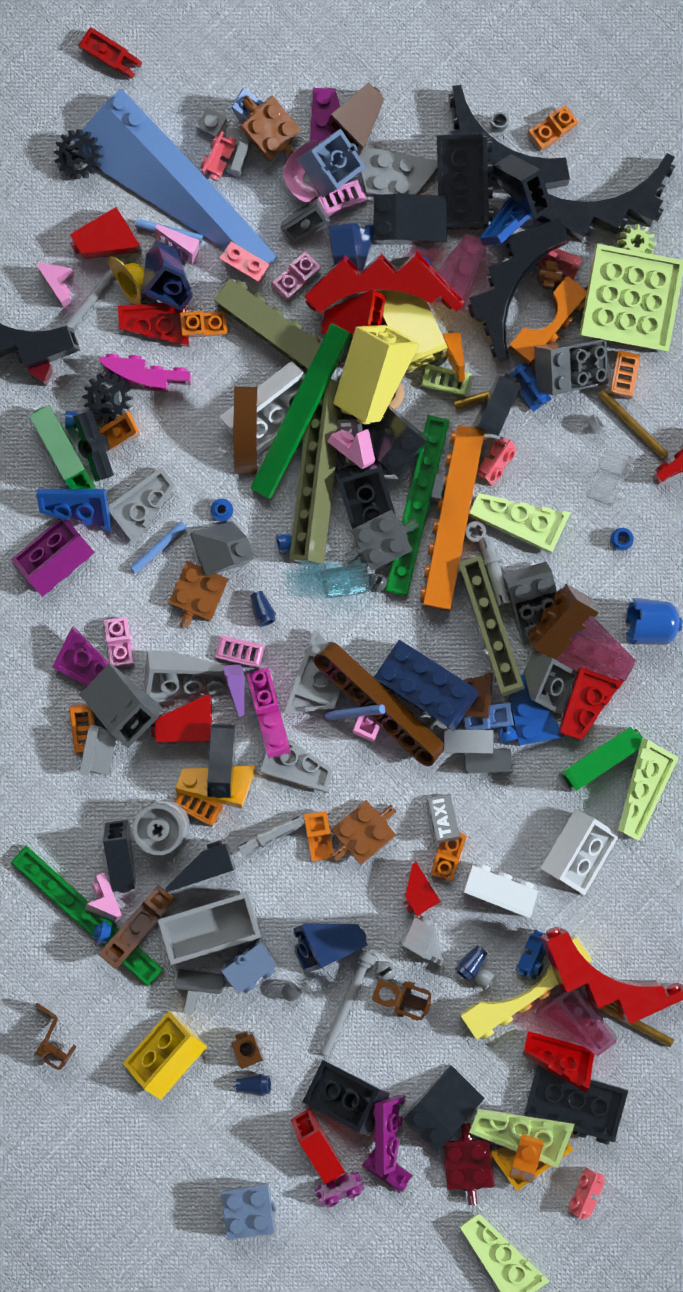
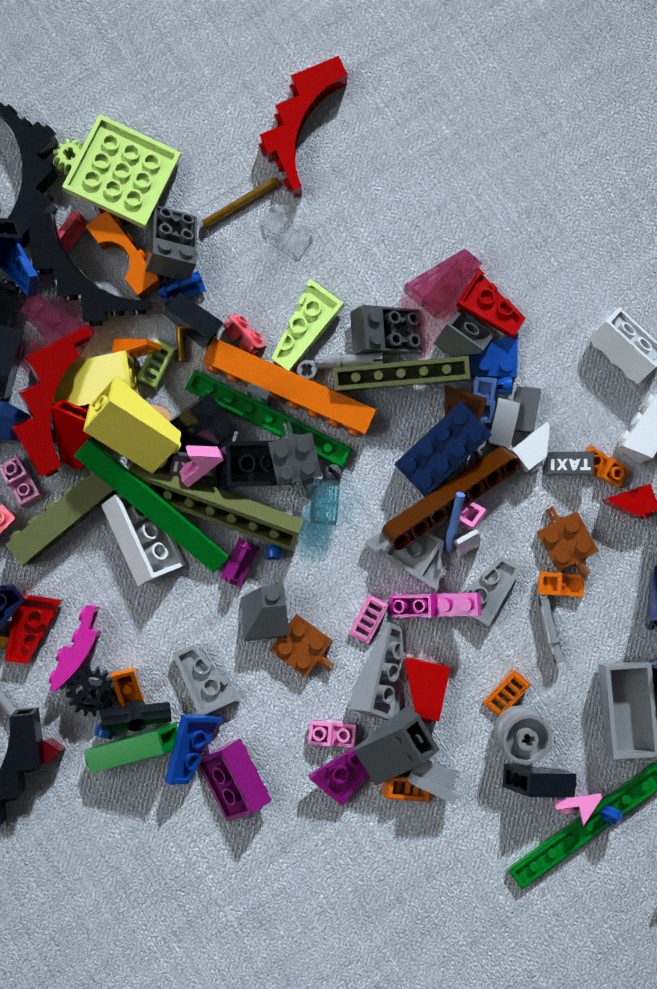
camera: 80 degrees left, 0 degrees up
(136, 927) = (613, 781): reddish brown slope -> none
(159, 546) = (251, 678): medium blue bar -> none
(194, 783) = (491, 670): light orange wing -> none
(203, 324) = (44, 581): orange slope -> none
(208, 864) = (570, 697): black slope -> none
(221, 761) = (474, 662): black slope -> none
(225, 516) = (235, 604): blue plate -> none
(235, 681) = (400, 630): medium lavender slope -> none
(245, 430) = (156, 563): reddish brown slope -> none
(262, 609) = (335, 588): dark blue cone -> none
(266, 511) = (239, 562): none -> magenta hinge
(337, 731) = (467, 542): none -> white slope
(448, 776) = (533, 449): none -> white slope
(549, 275) = (81, 243): reddish brown gear -> none
(561, 621) = (413, 307): reddish brown wedge -> none
(594, 424) = (232, 238): light grey hinge -> none
(602, 759) = (548, 304): green slope -> none
(623, 392) = (204, 211): orange slope -> none
(627, 534) = (345, 231): blue plate -> none
(646, 786) = (580, 268): yellowish green wing -> none
(652, 622) = (431, 227): blue cylinder -> none

